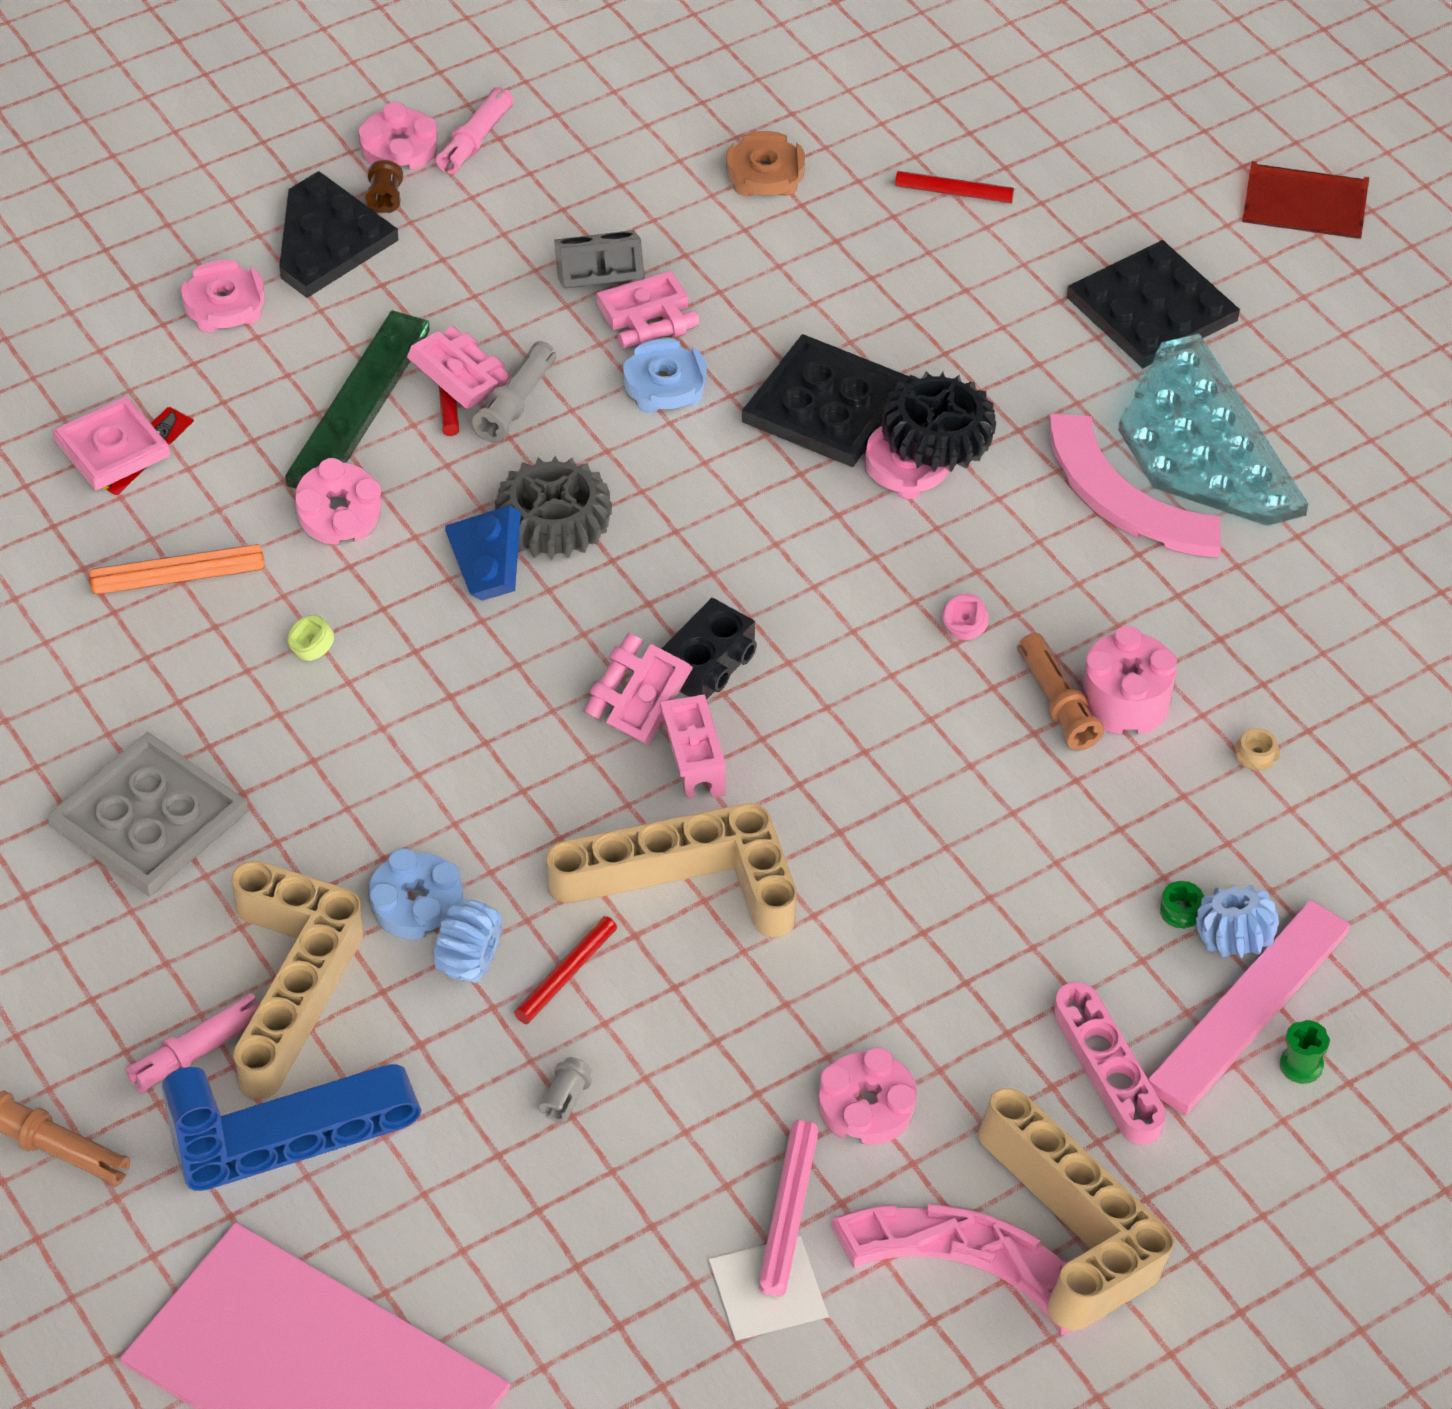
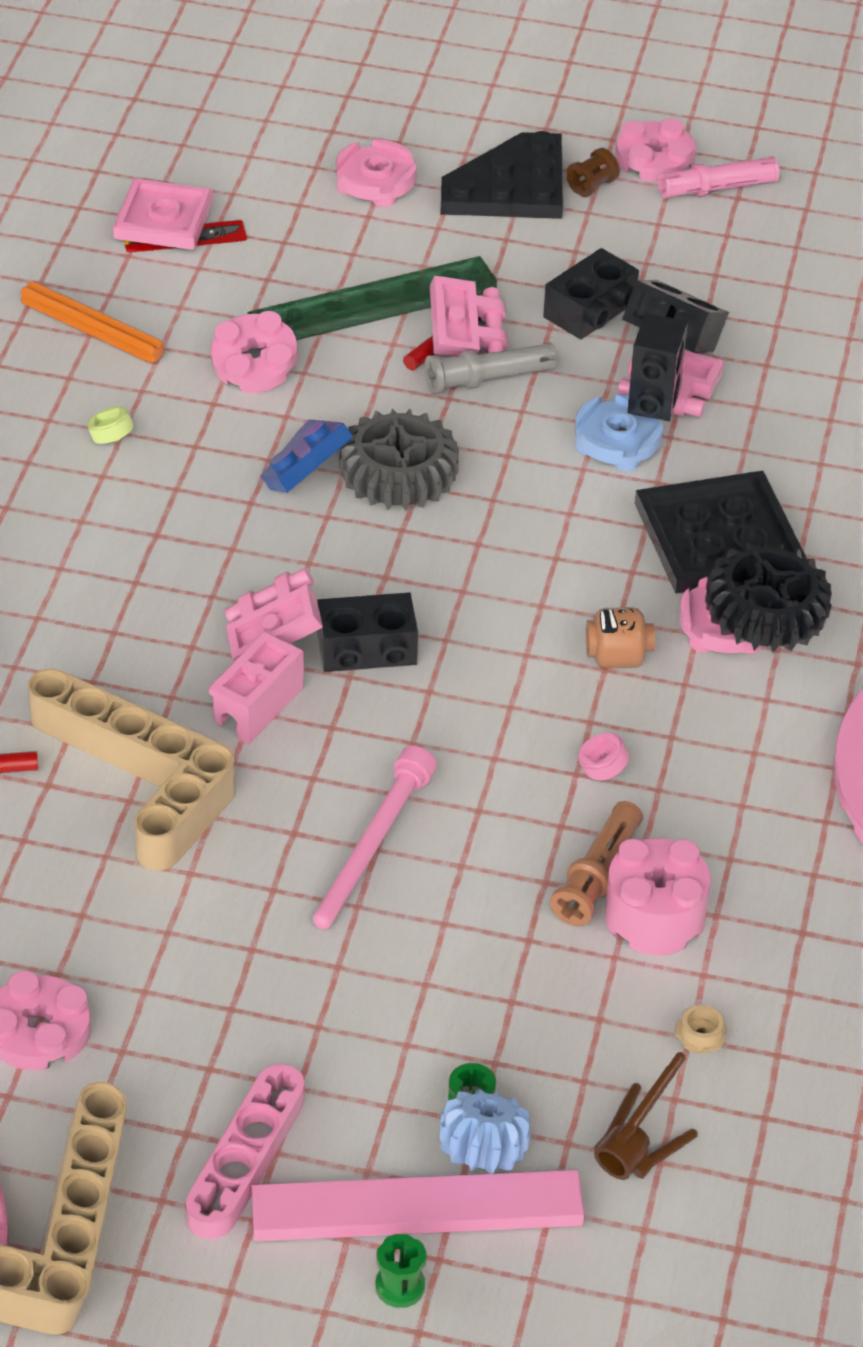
camera: 45 degrees right, 5 degrees down
(512, 283) = (589, 293): none -> black brick
(666, 304) = (657, 367): none -> black brick
(865, 724) = (412, 770): none -> bright pink piece
(867, 526) = (619, 637): none -> nougat head
(1317, 860) = (625, 1145): none -> reddish brown plant

